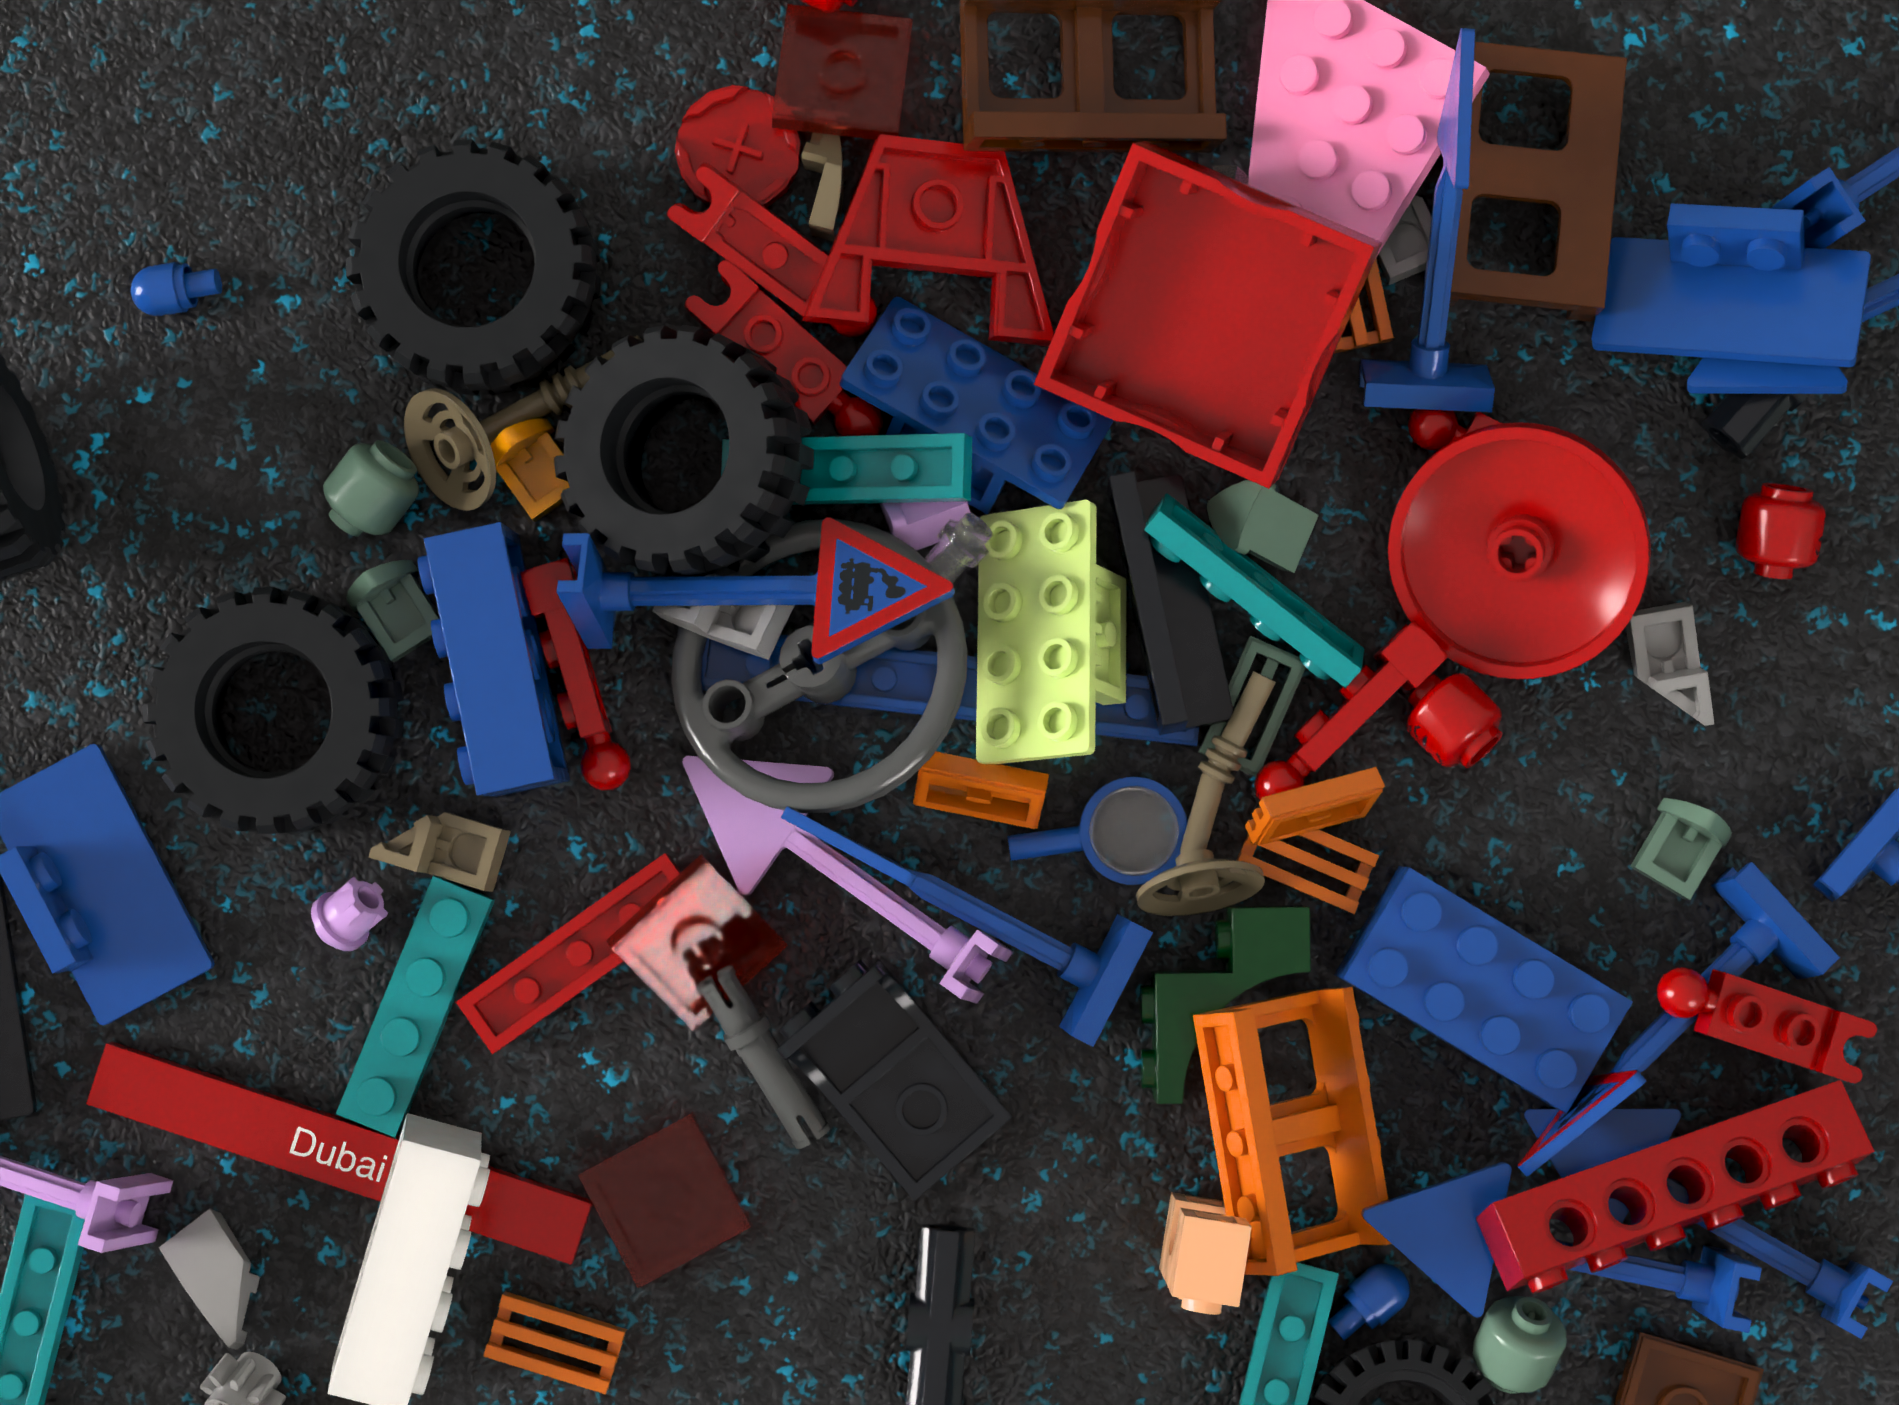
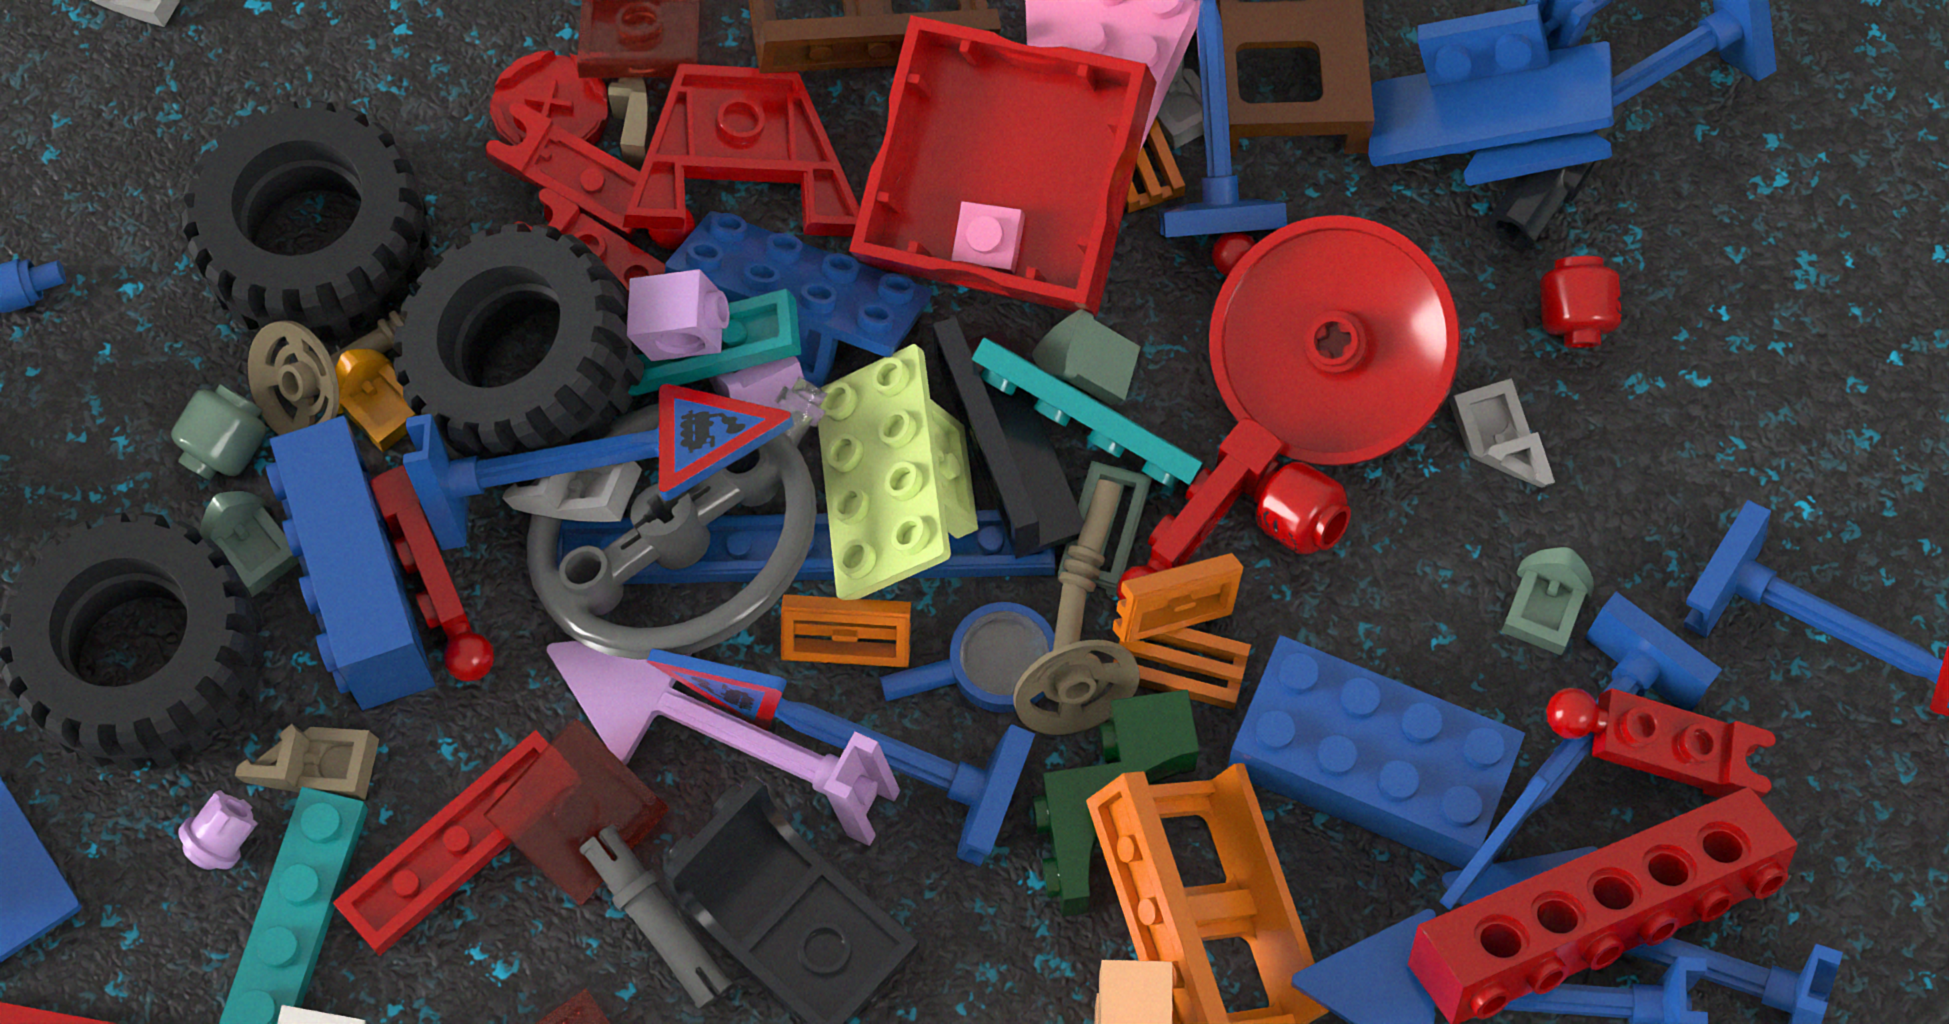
camera: 10 degrees left, 20 degrees down
(848, 447) = (676, 315): none -> lavender brick
(1179, 382) = (989, 236): none -> bright pink plate

